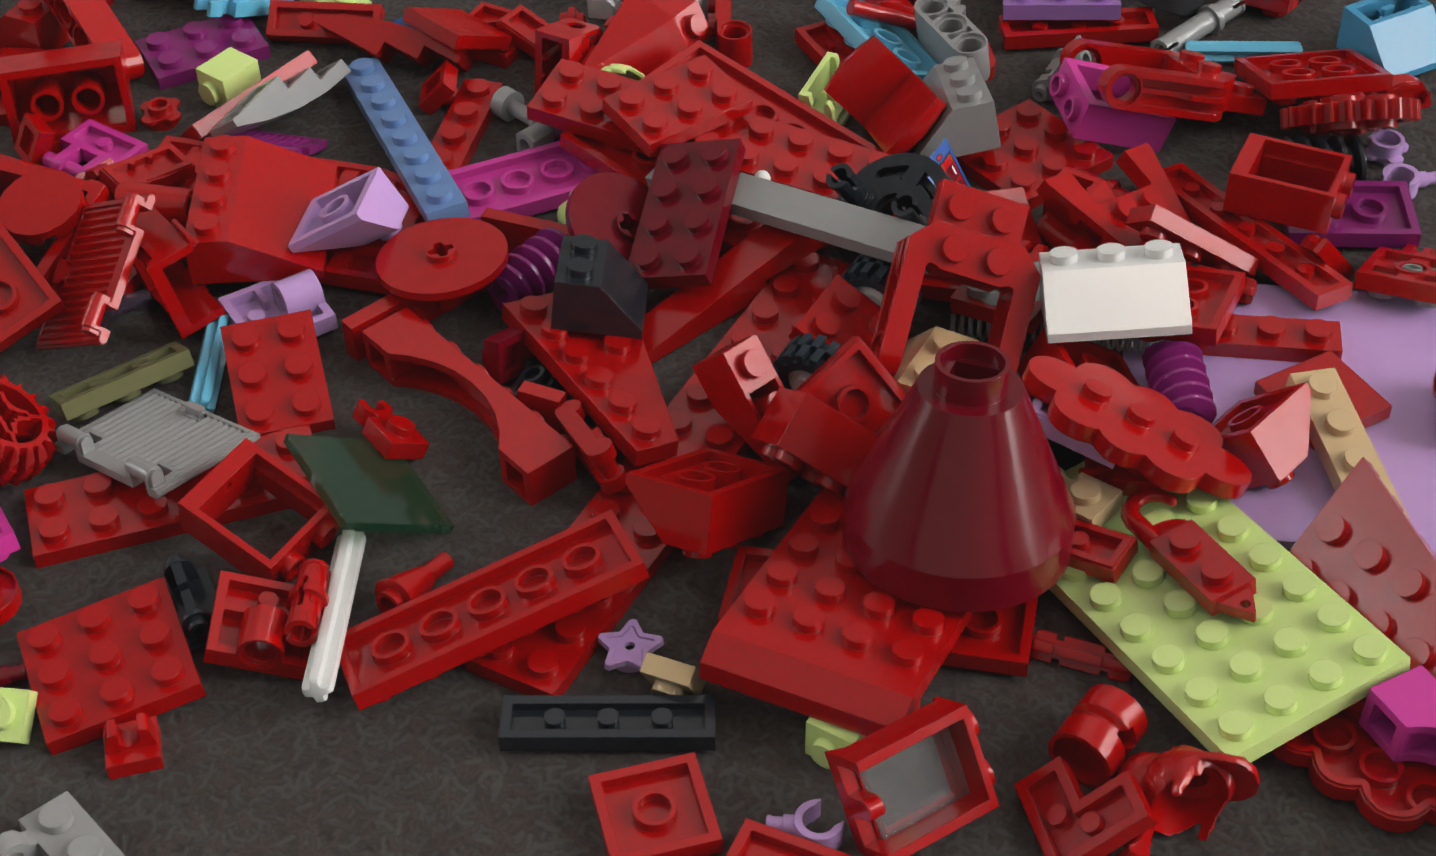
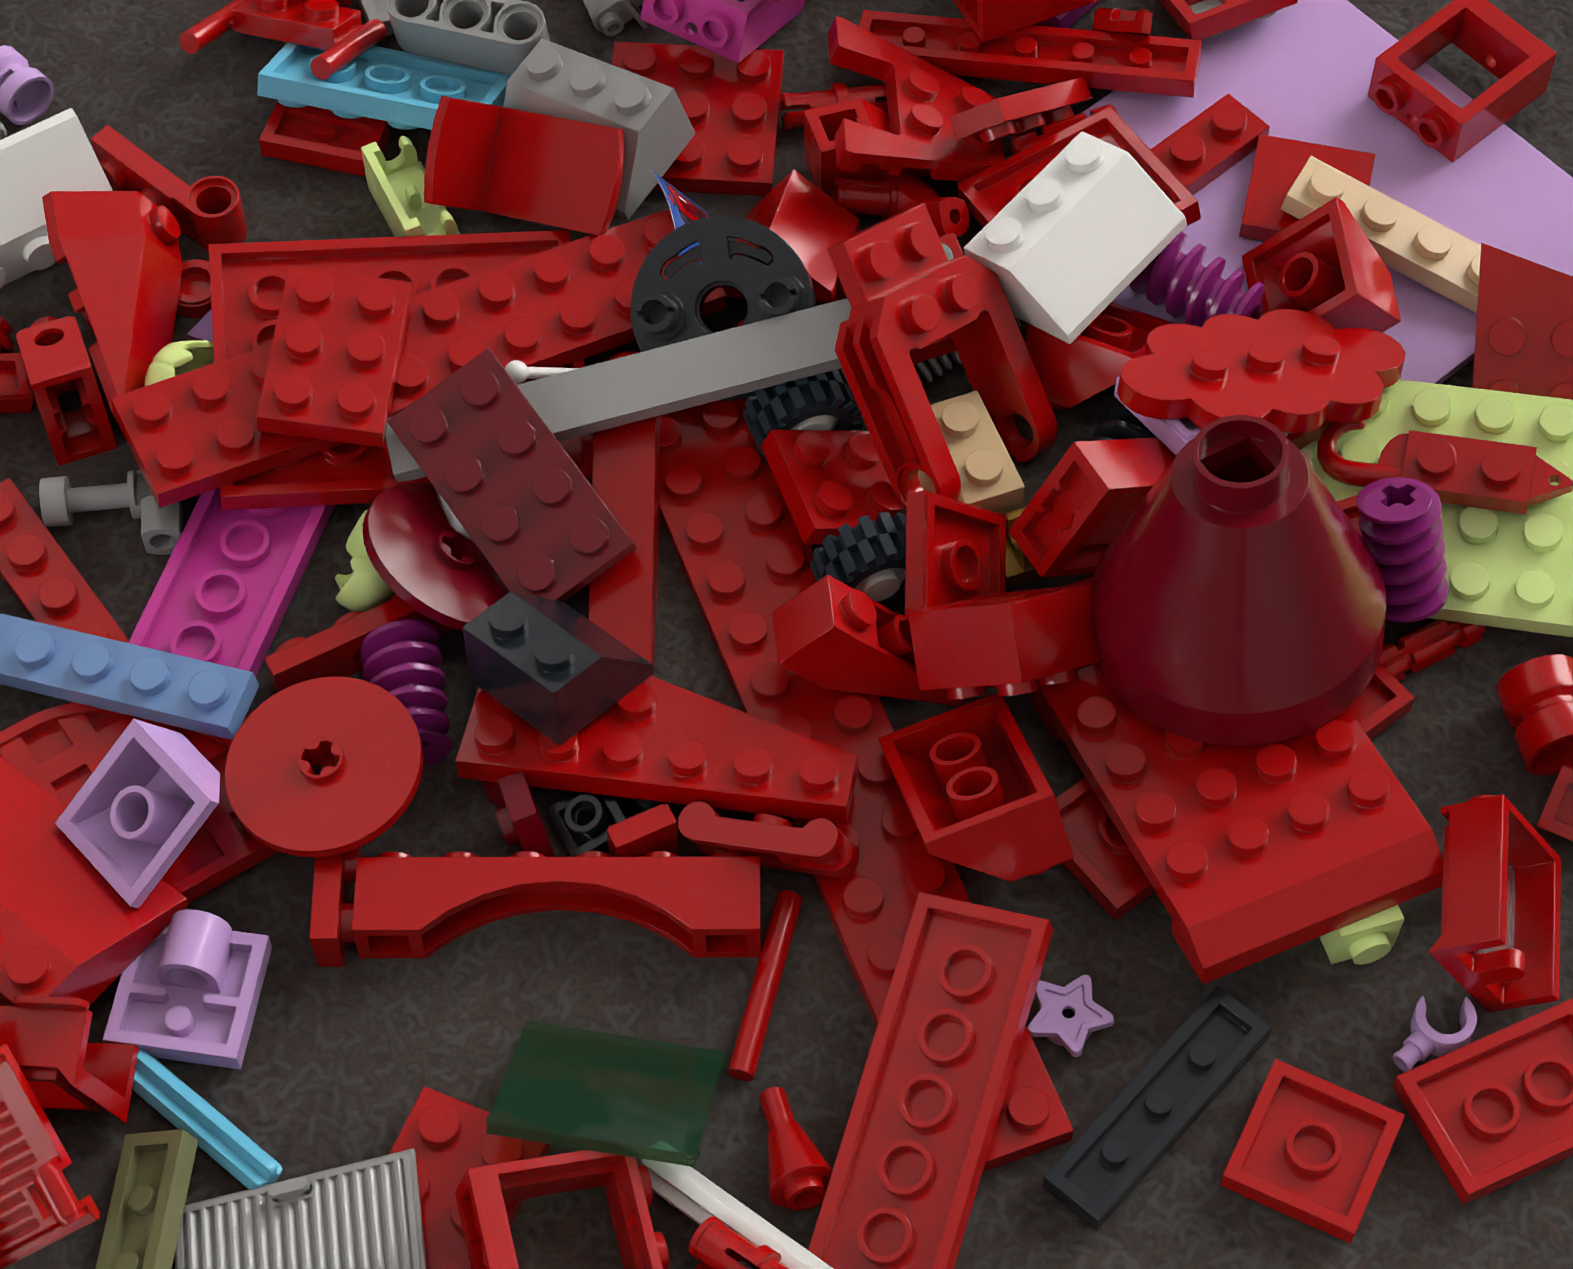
camera: 50 degrees left, 15 degrees up
(277, 374) = (314, 1066): red plate -> none
(390, 434) = (526, 1015): red plate -> none
(512, 515) = (765, 986): none -> red bar
(671, 676) = (1156, 1007): tan plate -> none
(1094, 559) = (1405, 536): none -> magenta piece

